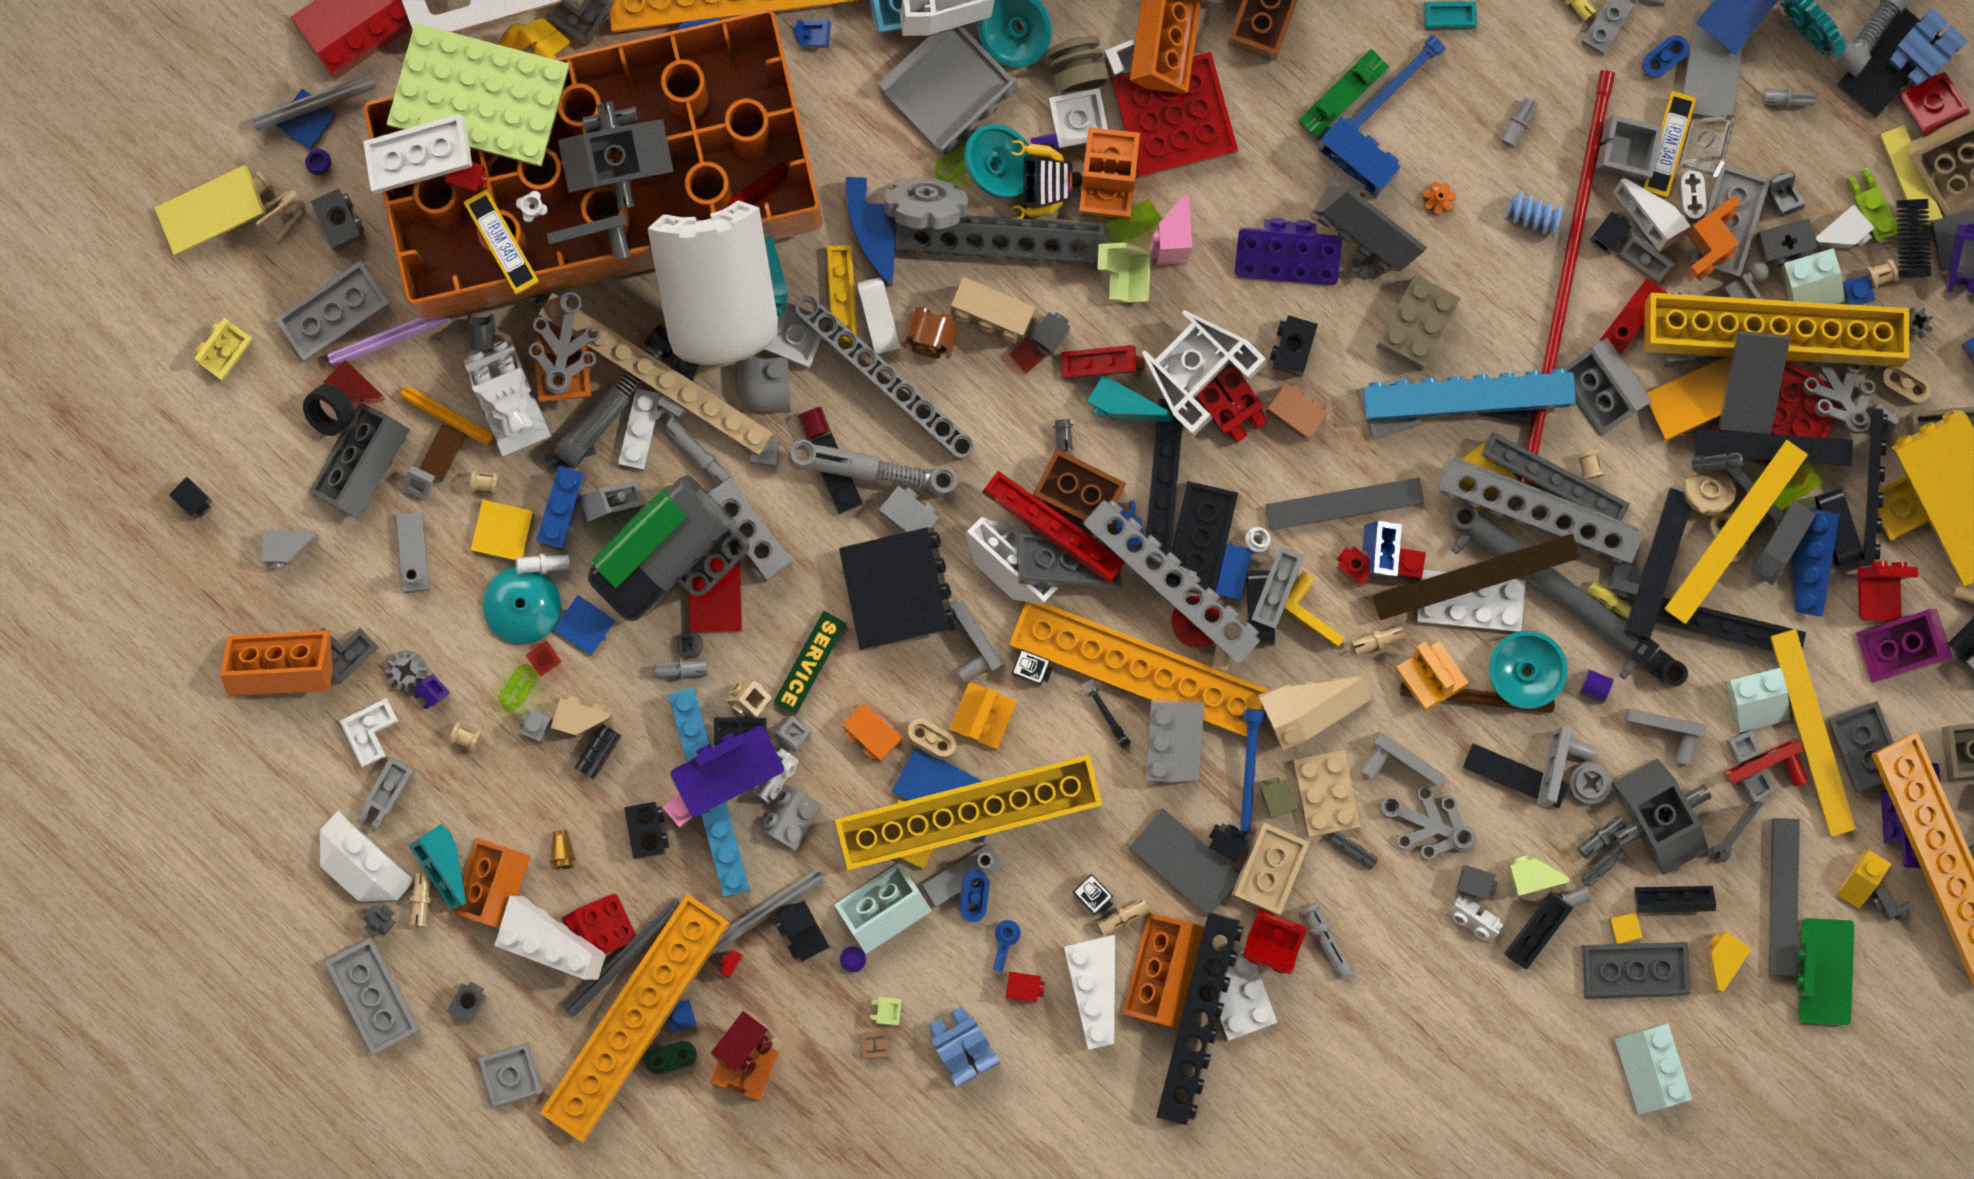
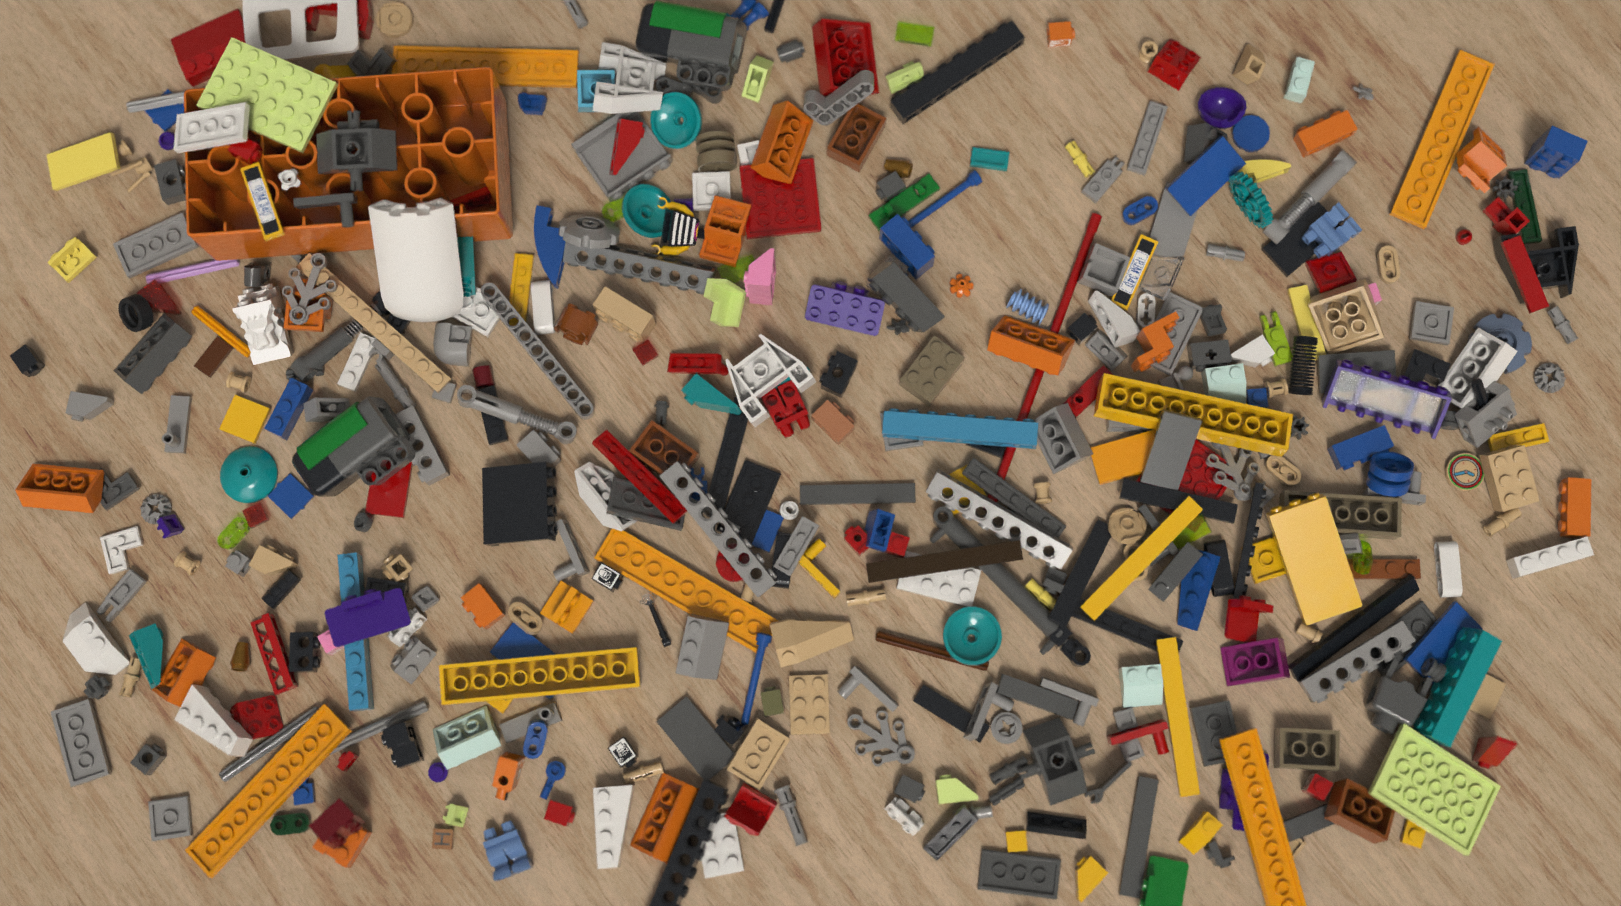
camera: 15 degrees right, 5 degrees down
(418, 482) = (191, 375): light grey plate -> none
(542, 563) = (268, 446): white pin -> none
(613, 835) = (279, 652): none -> red fence
(681, 669) = (353, 538): light grey axle -> none
(810, 662) = (448, 548): dark green tile -> none
(947, 937) = (508, 766): none -> orange torso
(952, 68) = (626, 139): none -> red slope
(1051, 332) = (665, 338): dark grey brick -> none
(1321, 76) = (890, 187): none -> dark grey brick
(1329, 46) = (902, 167): none -> pearl gold cone
(1354, 850) = (822, 750): dark grey axle -> none
(1431, 675) = (900, 629): light orange bracket -> none
(1519, 122) = (1027, 241): light grey axle -> none
(1545, 266) = (1030, 345): none -> orange slope
(1596, 686) = (1021, 656): dark purple brick -> none
(1625, 736) = (1037, 696): none -> dark grey slope
(1717, 462) = (1135, 505): dark grey axle -> none

